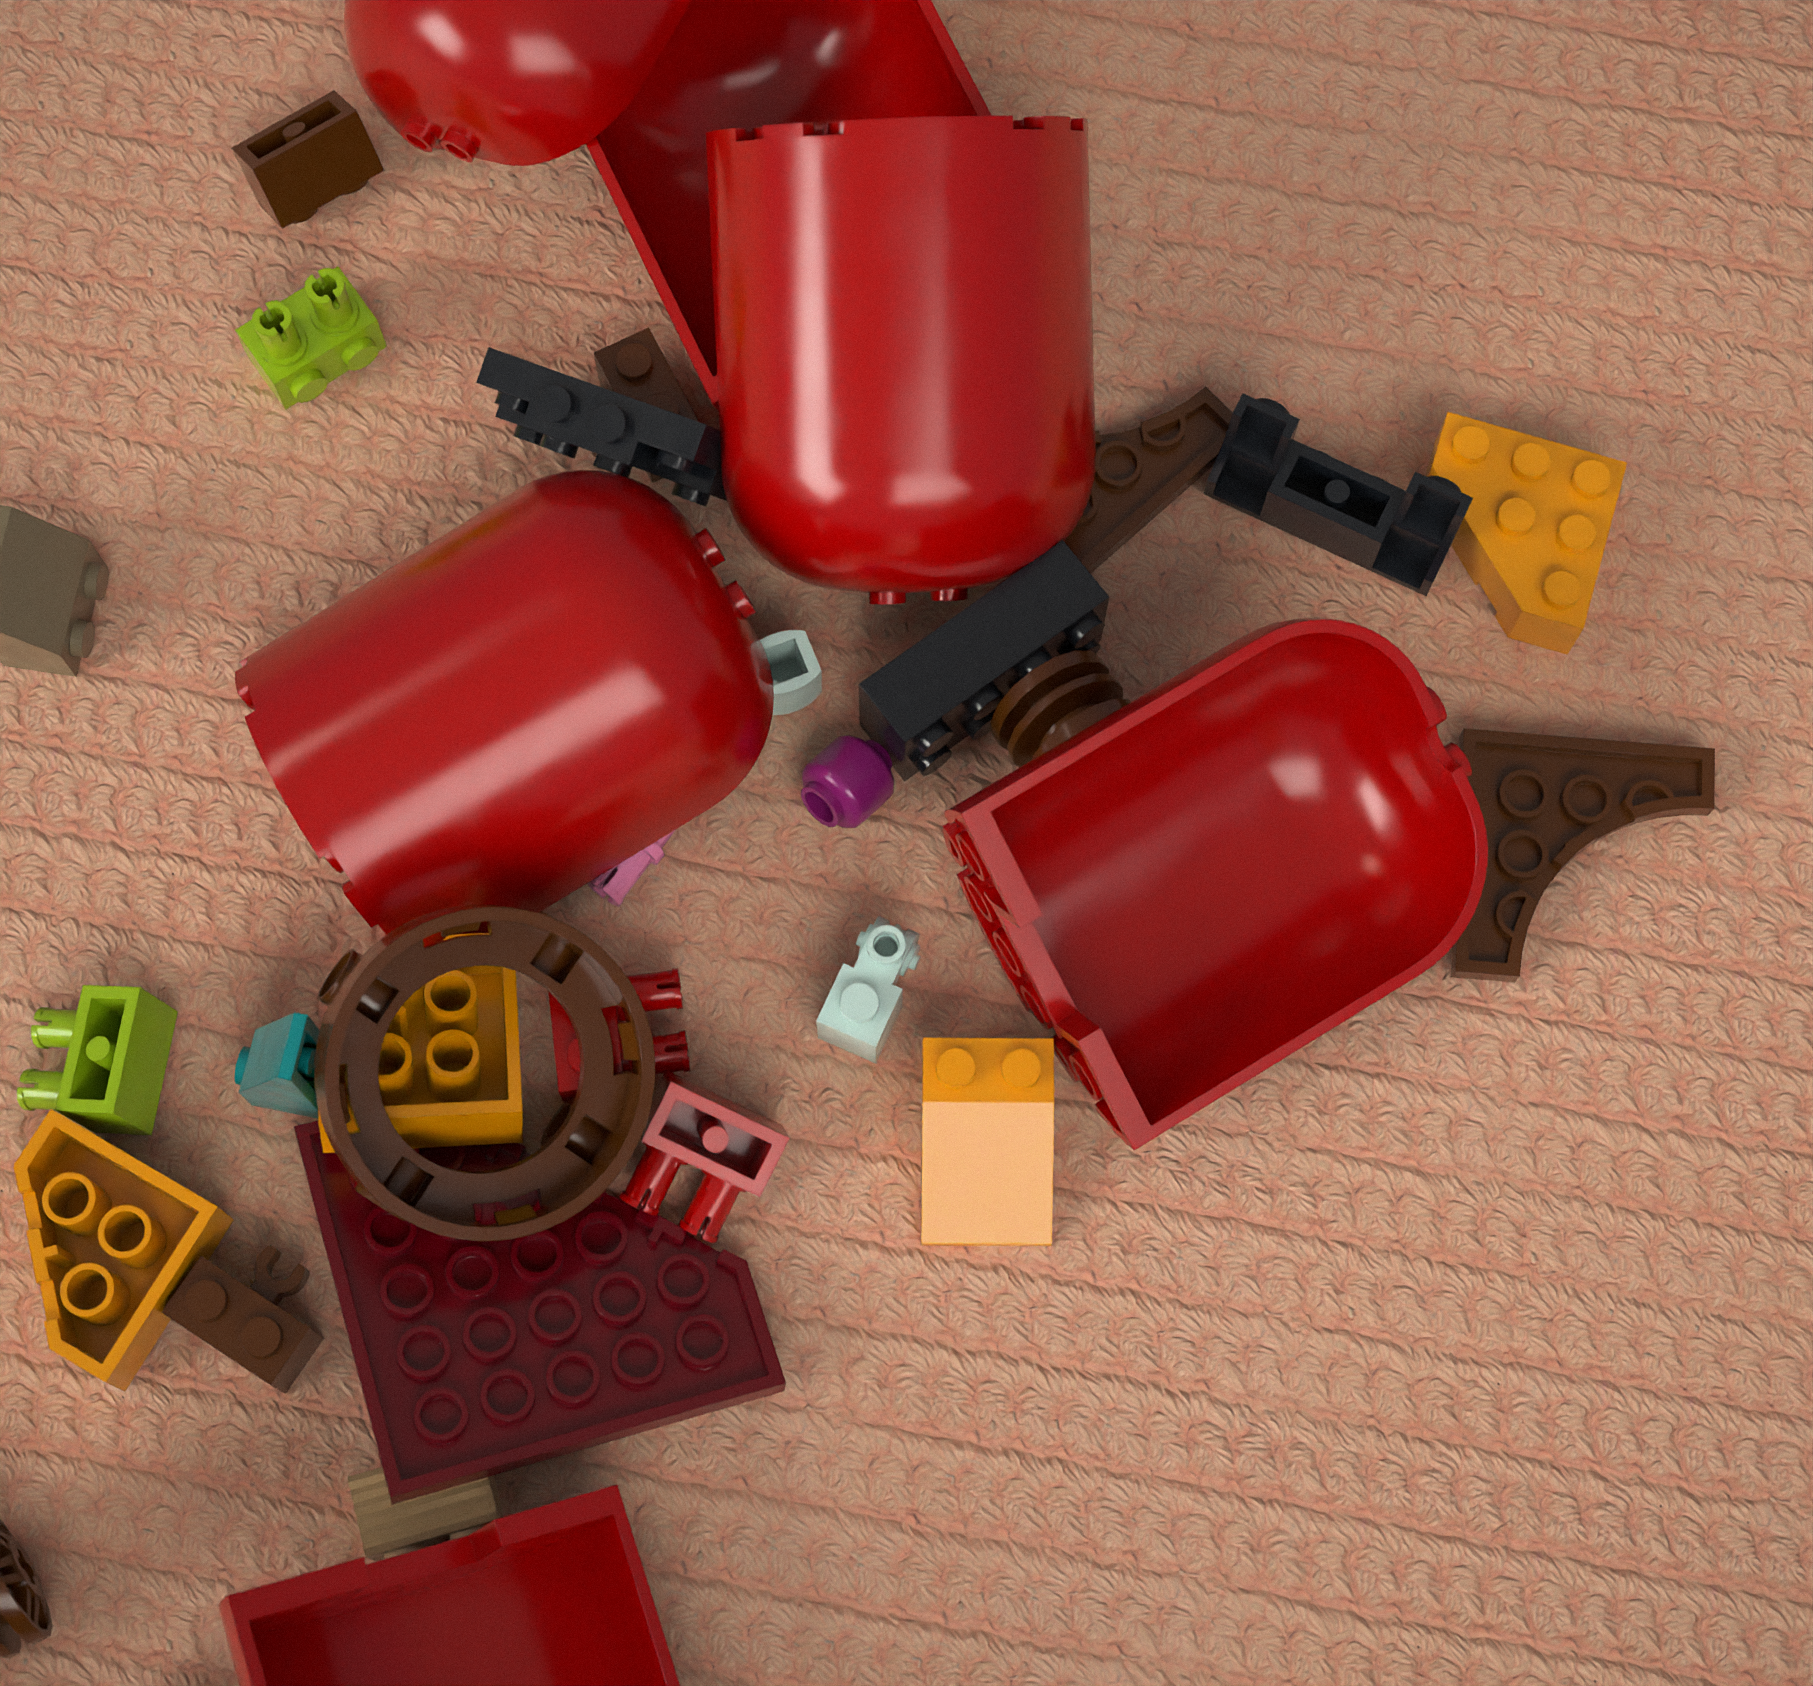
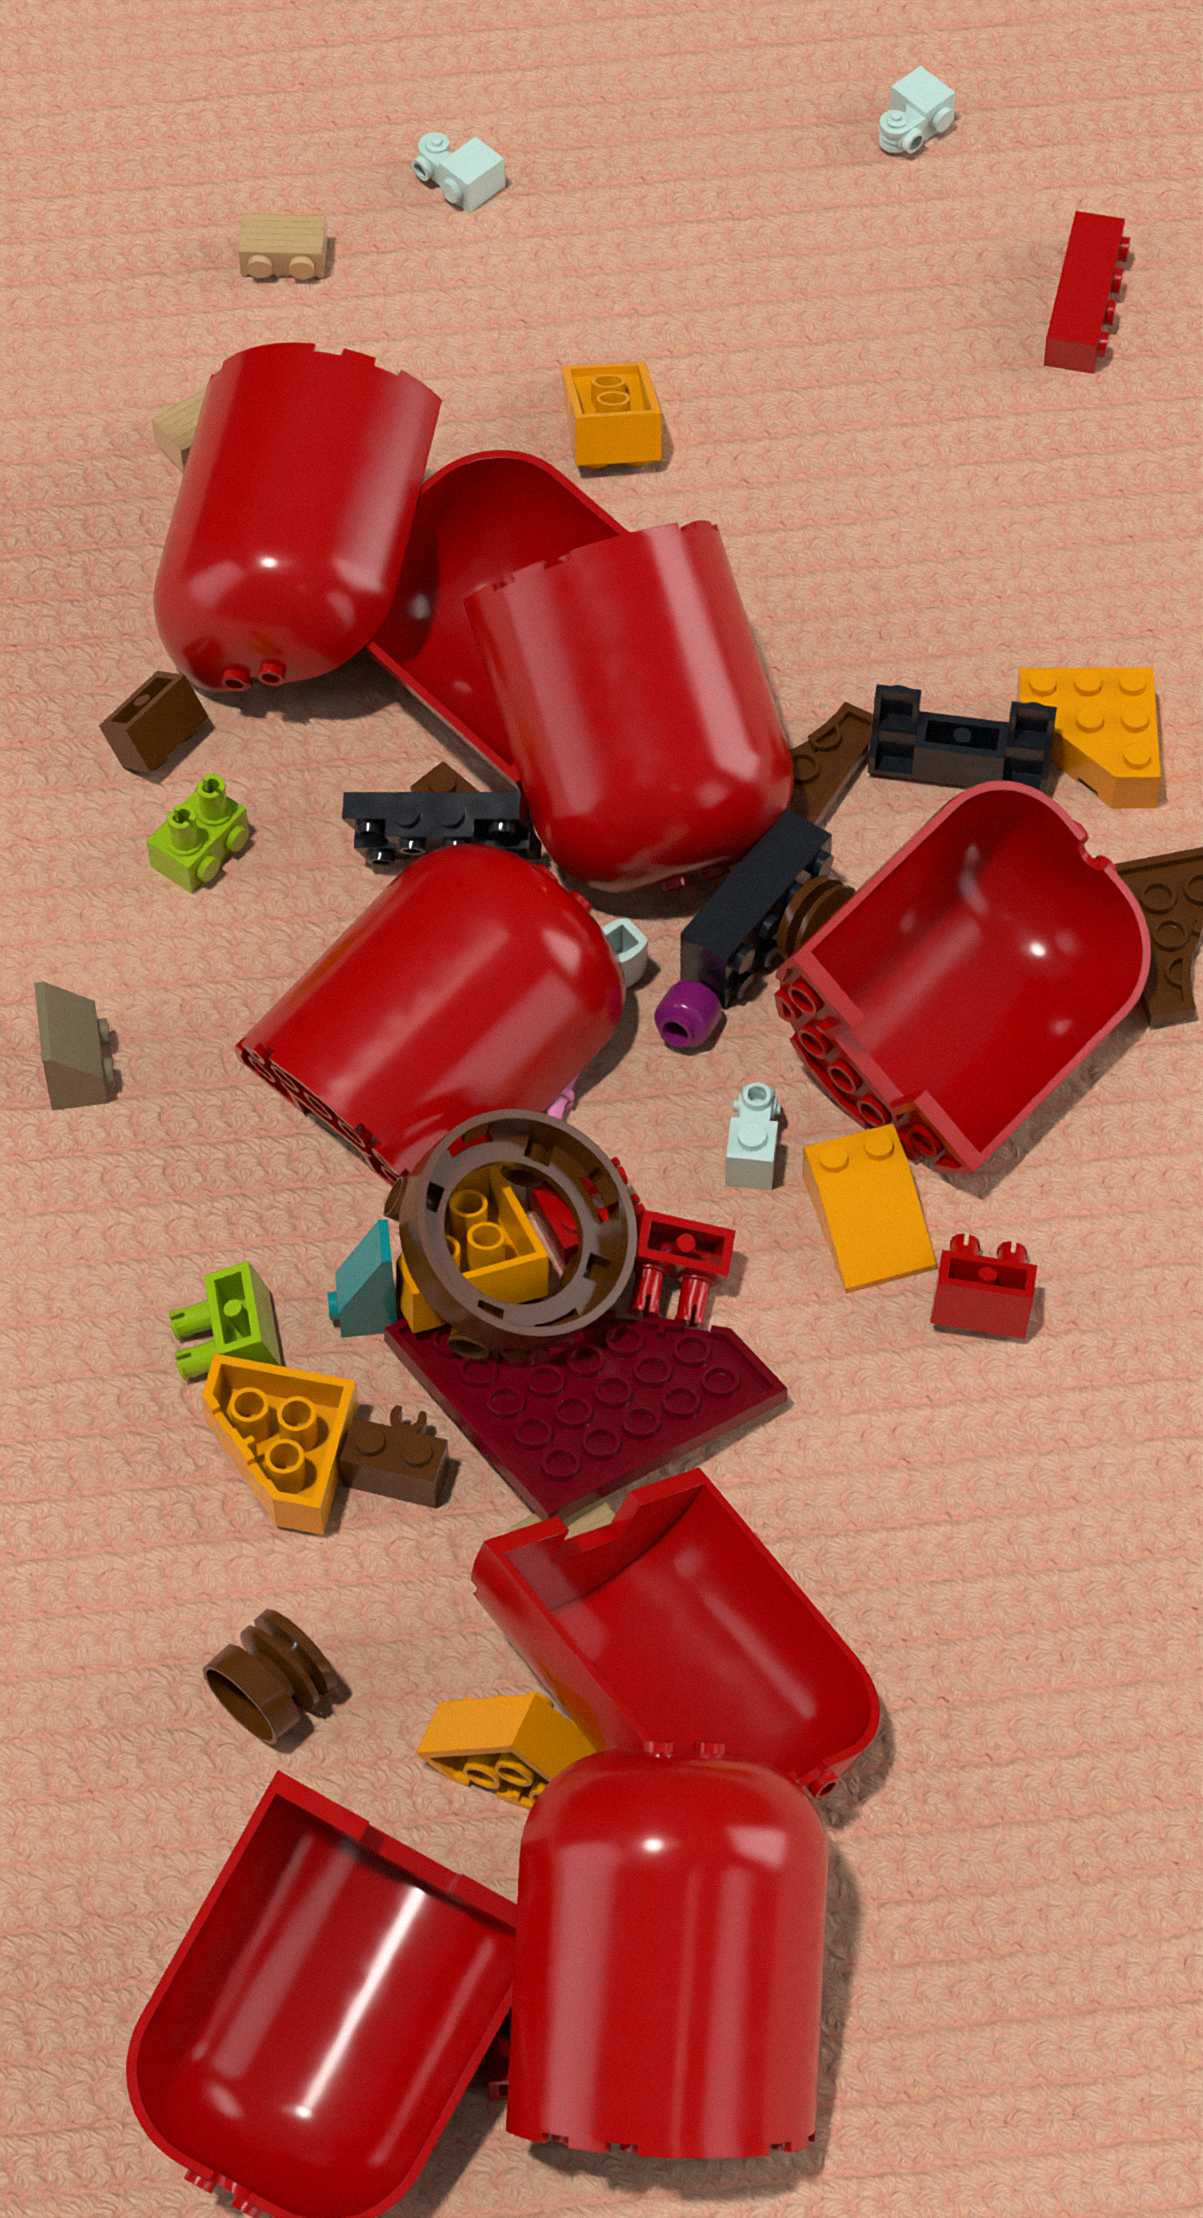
camera: 15 degrees left, 15 degrees down
(1093, 1320) = (984, 1290): none -> red brick

